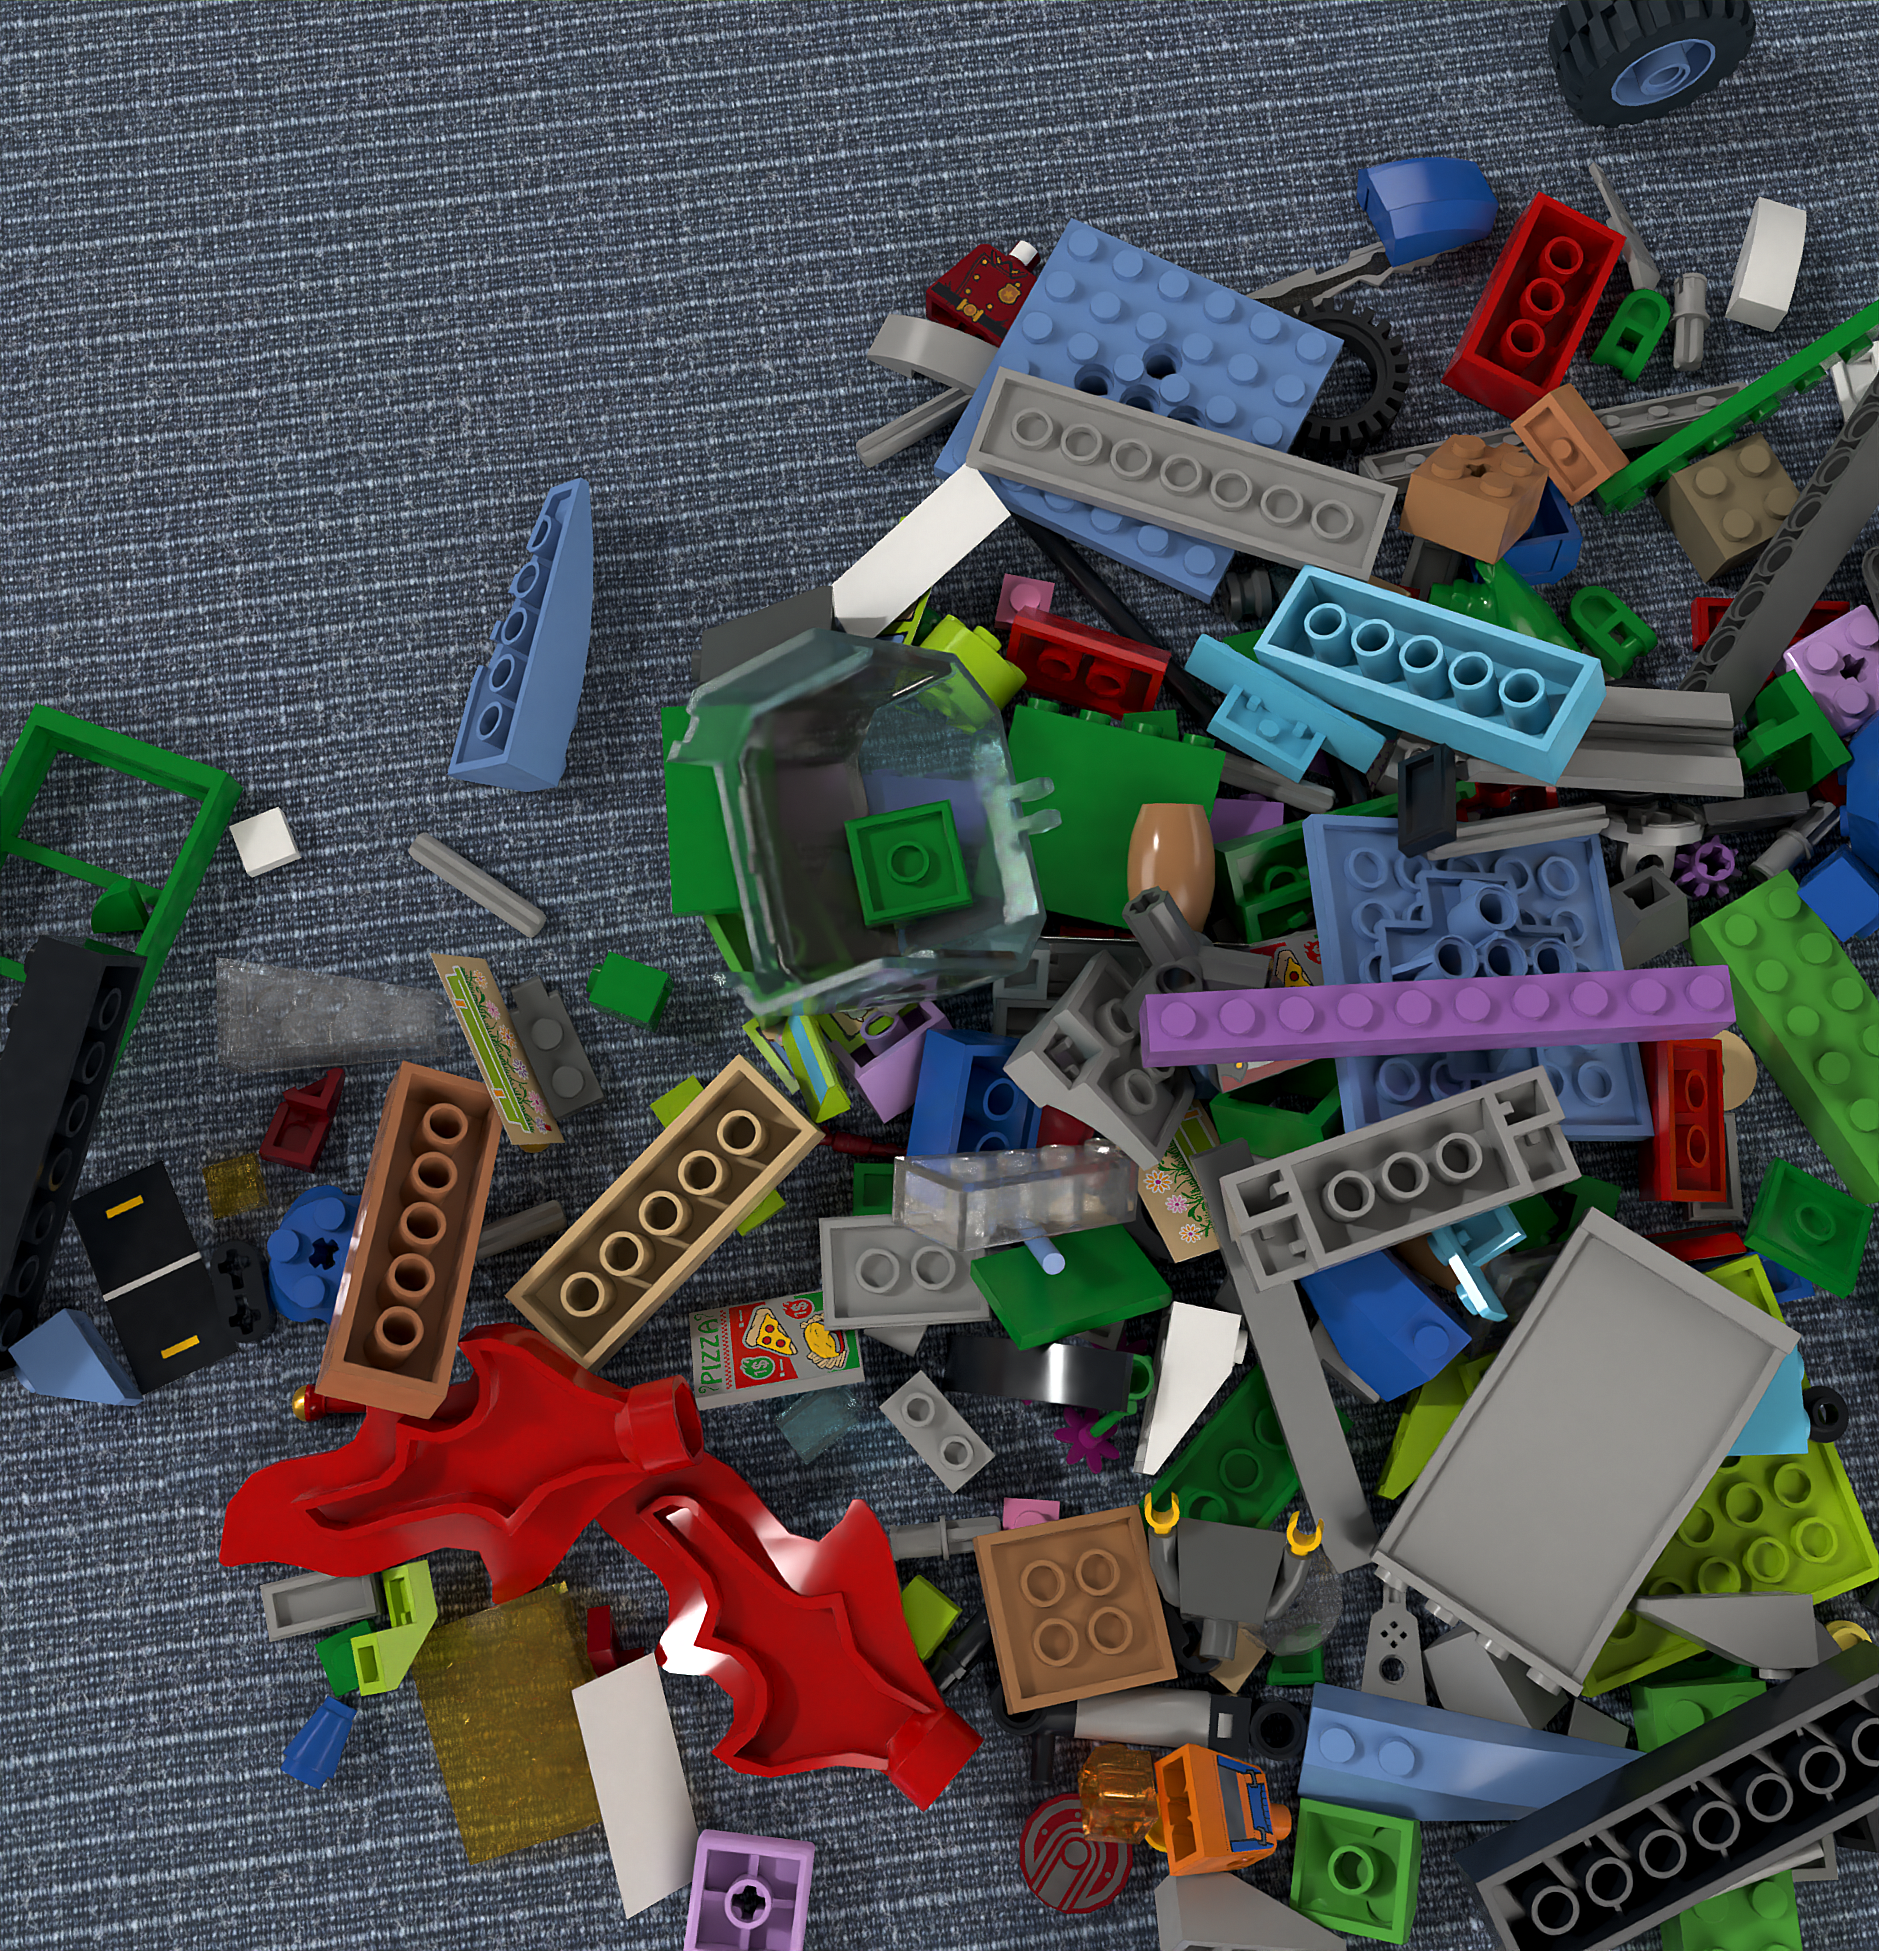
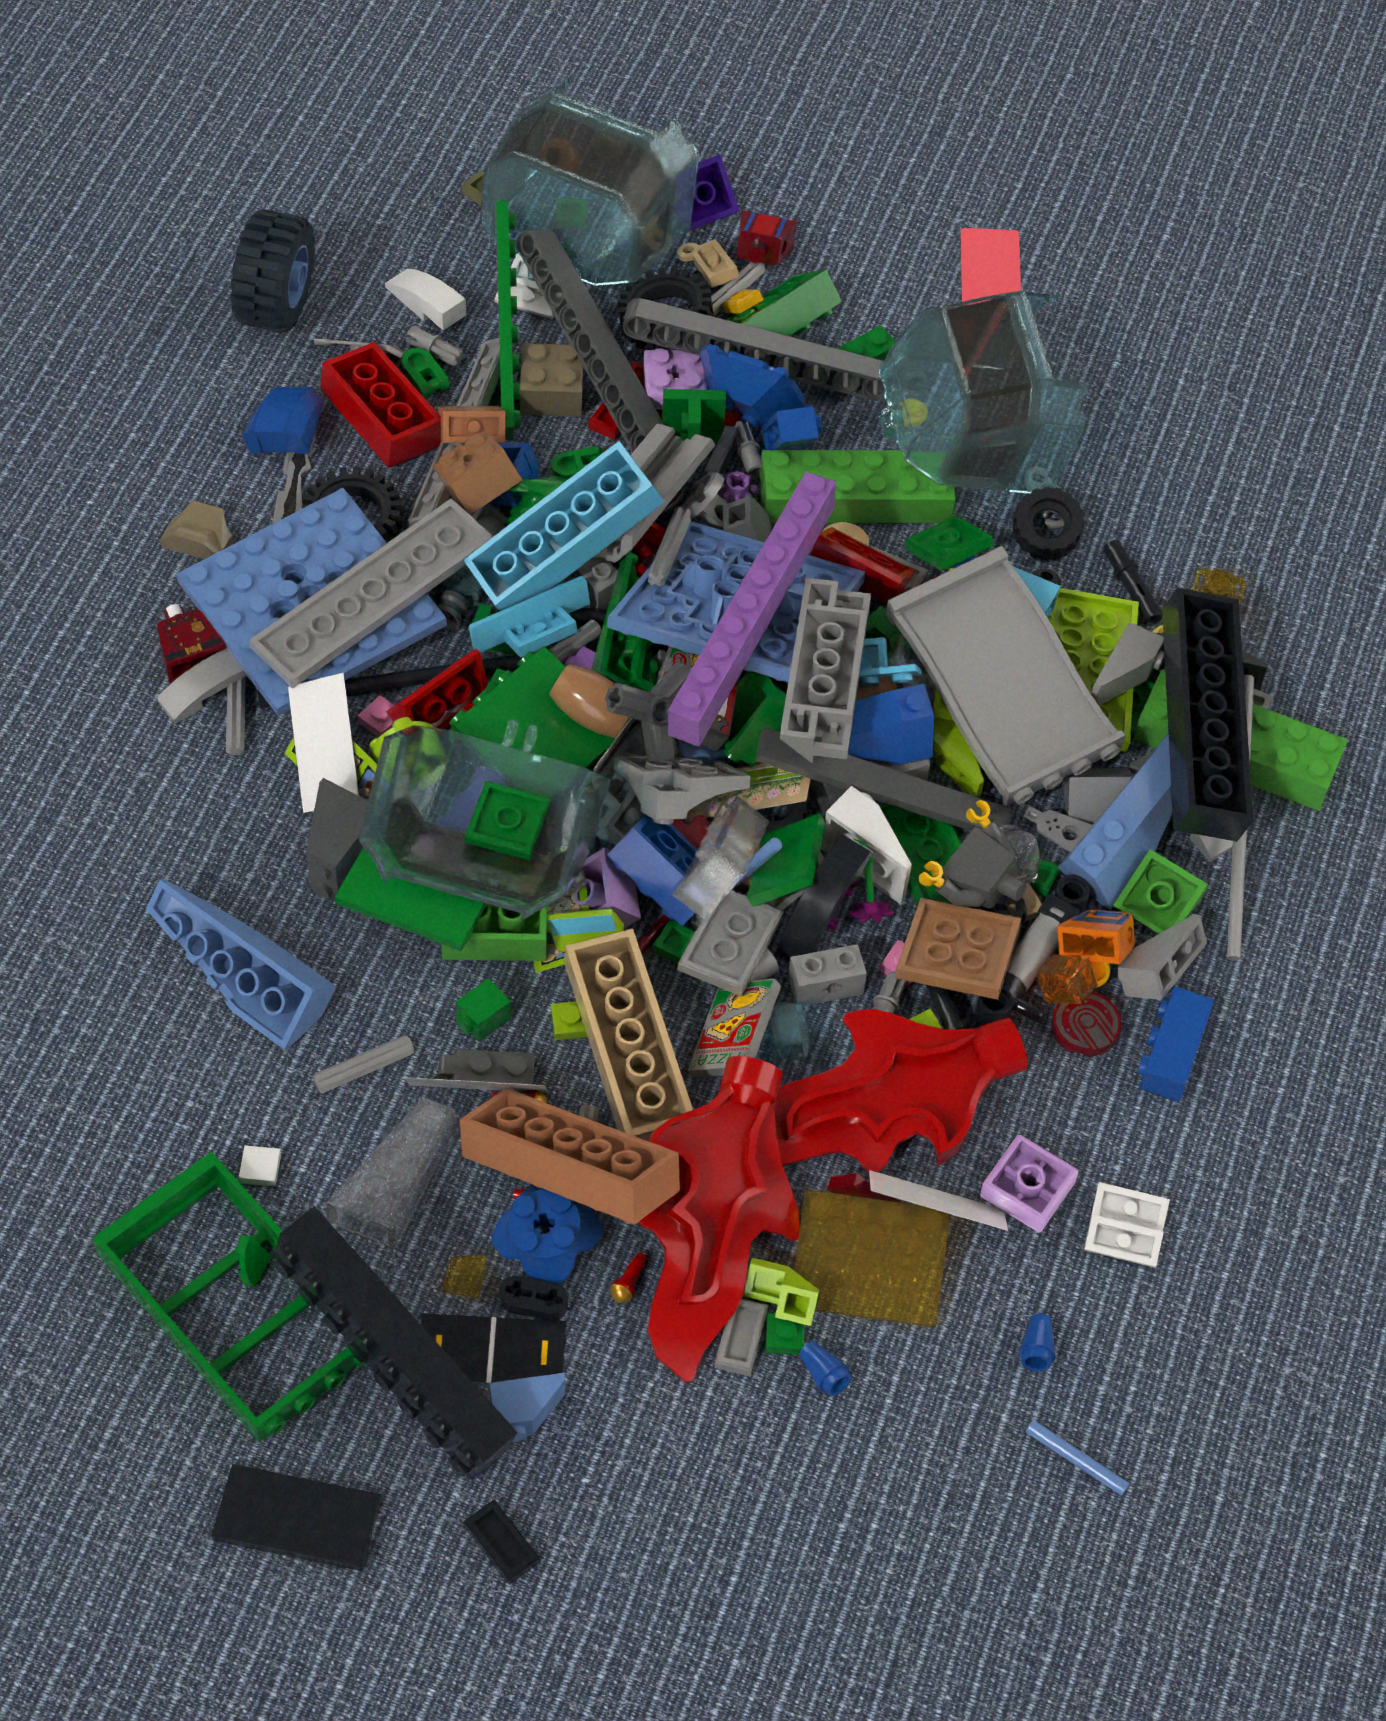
camera: 65 degrees left, 20 degrees down
(303, 1123) = (450, 1223): dark red slope -> none
(1177, 210) = (198, 531): none -> dark tan slope
(1427, 801) = (632, 566): black tile -> none

